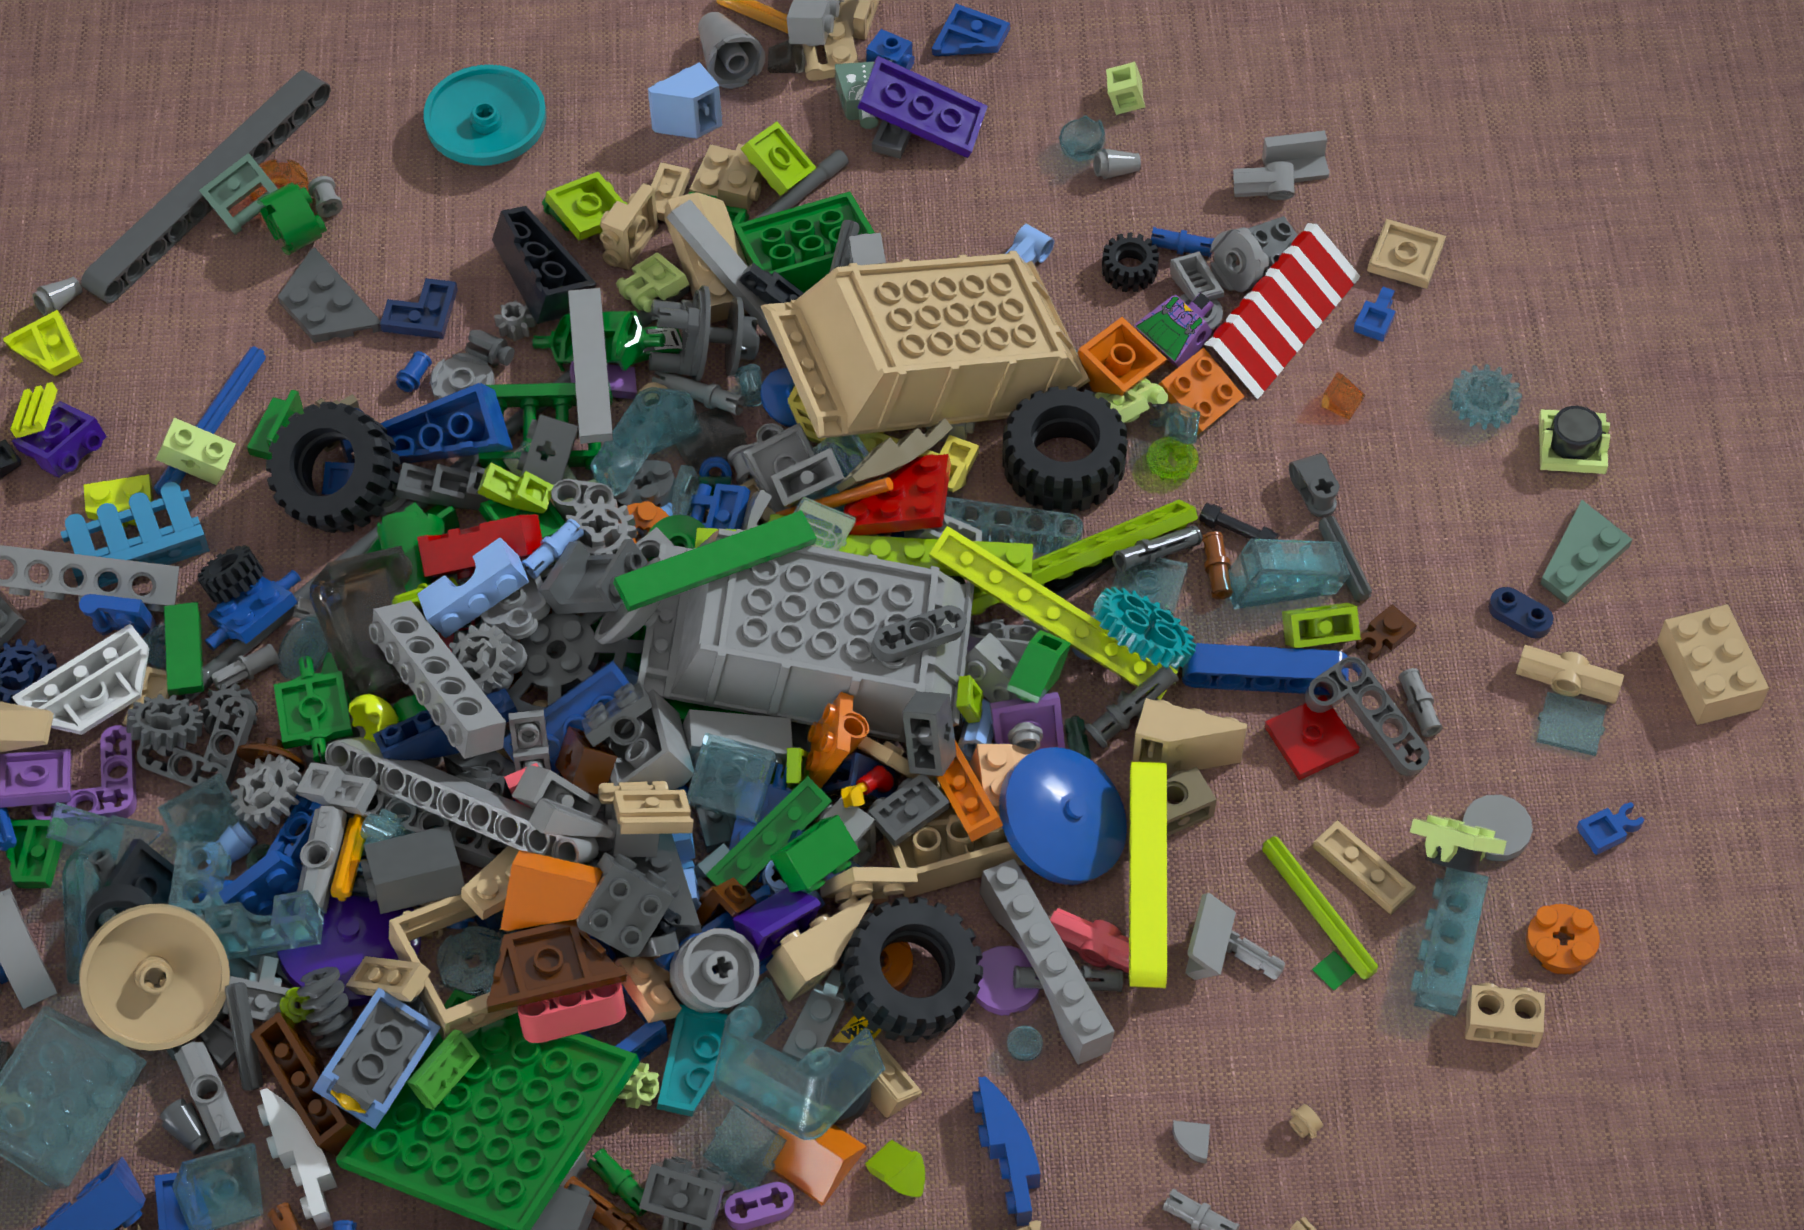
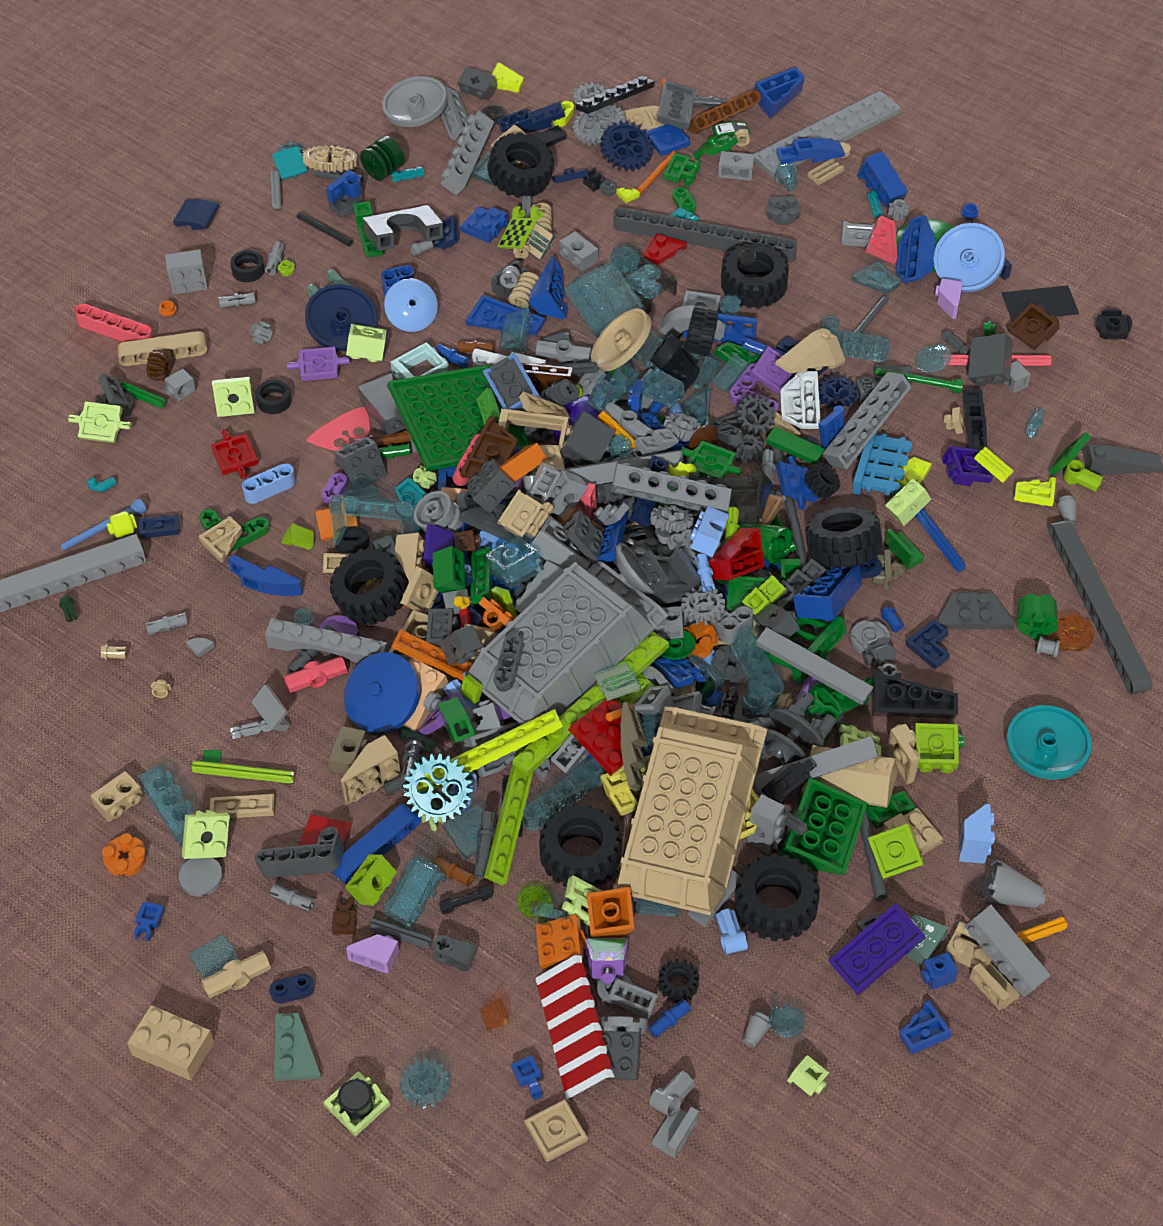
camera: 130 degrees right, 5 degrees down
(51, 877) = (701, 331): none -> black tyre
(233, 187) = (1078, 602): sand green plate -> none
(668, 183) = (924, 795): tan plate -> none
(714, 561) = (613, 591): green tile -> none
(943, 198) = (772, 921): none -> black tyre
(1148, 875) = (320, 699): neon yellow beam -> none
(1397, 557) = (375, 952): none -> lavender slope

